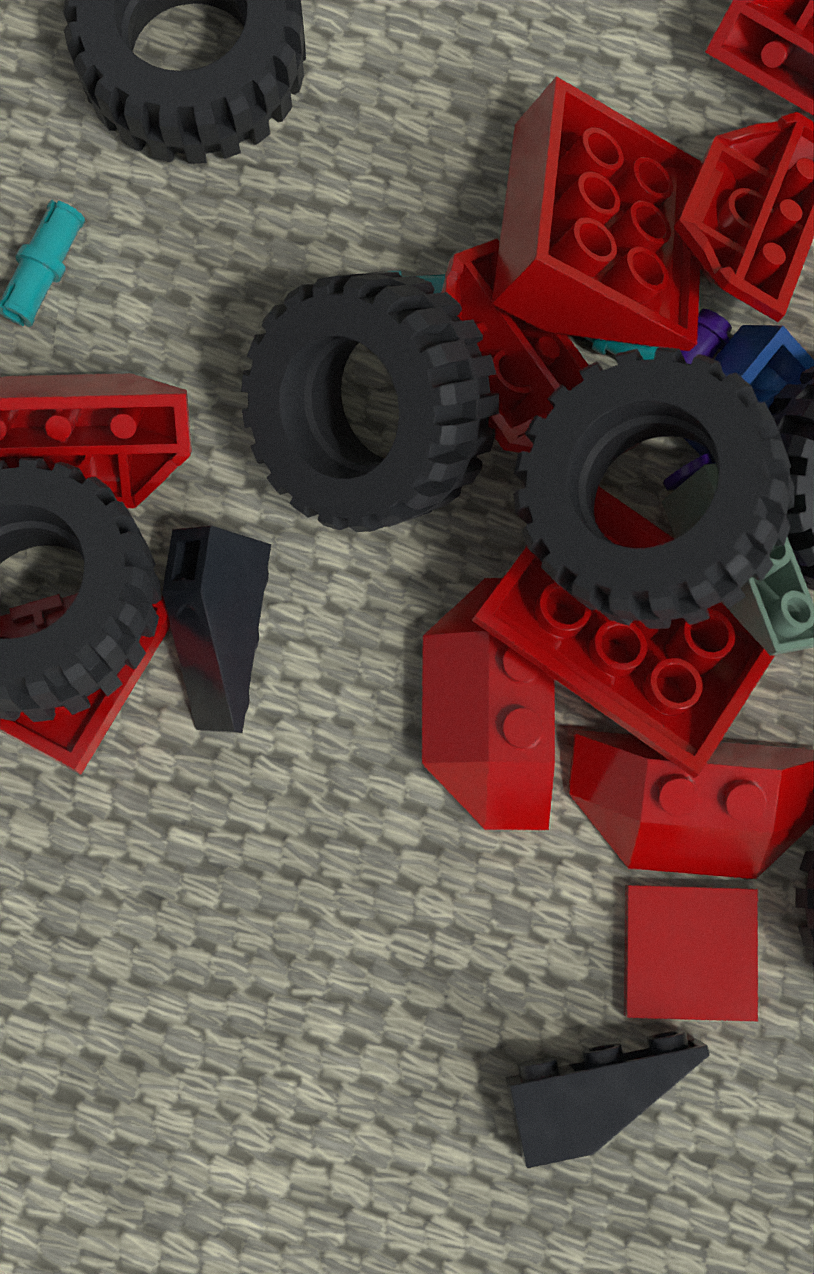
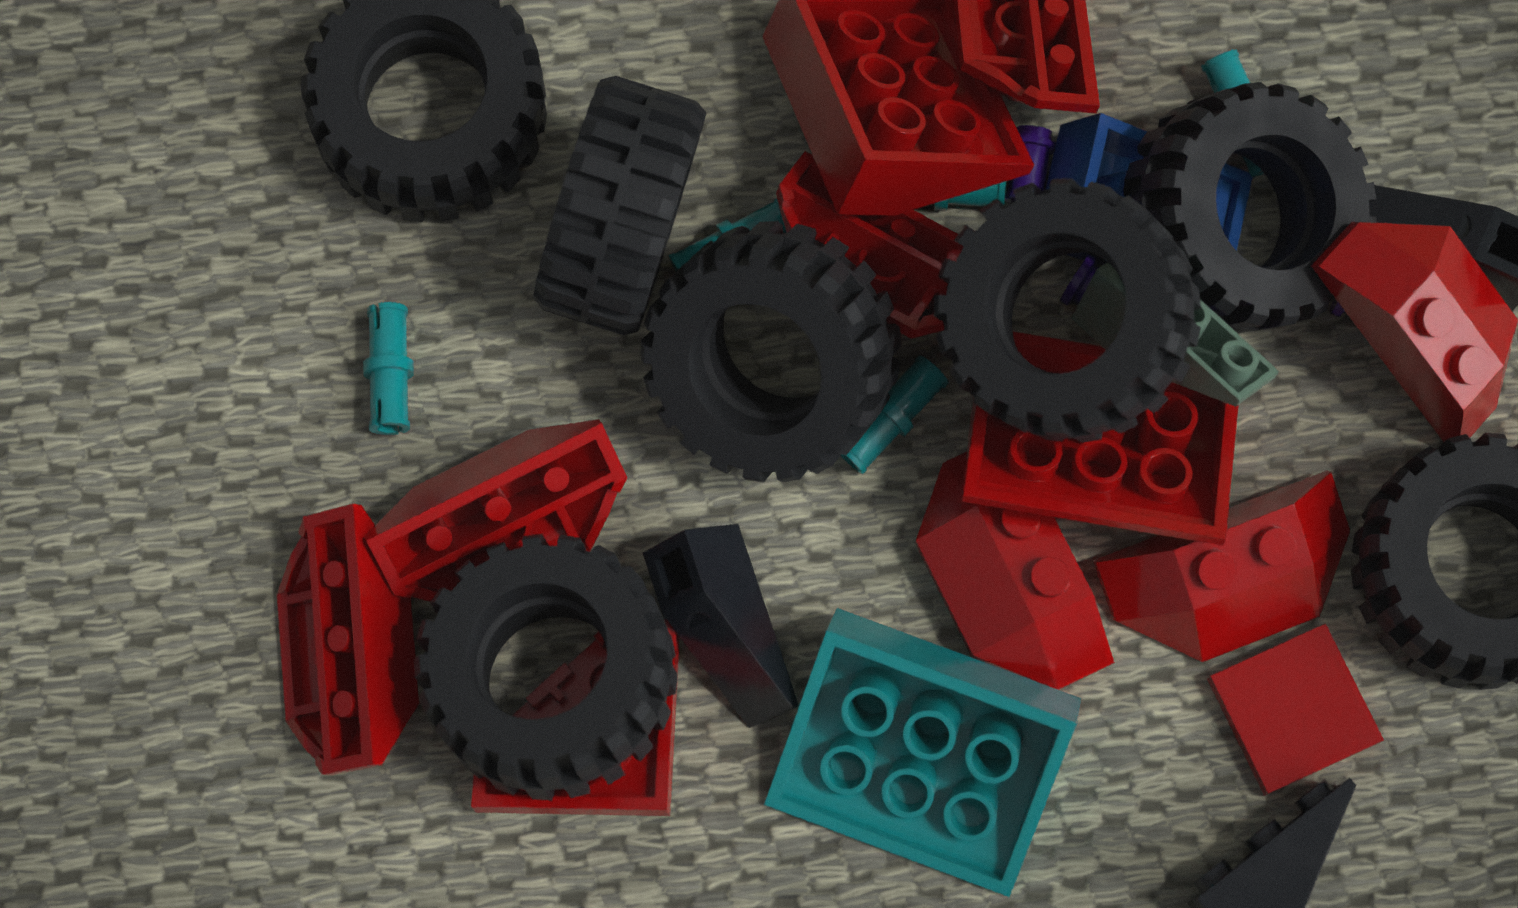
camera: 25 degrees left, 5 degrees down
(296, 196) = (618, 205): none -> black tyre
(335, 825) = (923, 752): none -> teal slope
(461, 515) = (906, 400): none -> teal pin

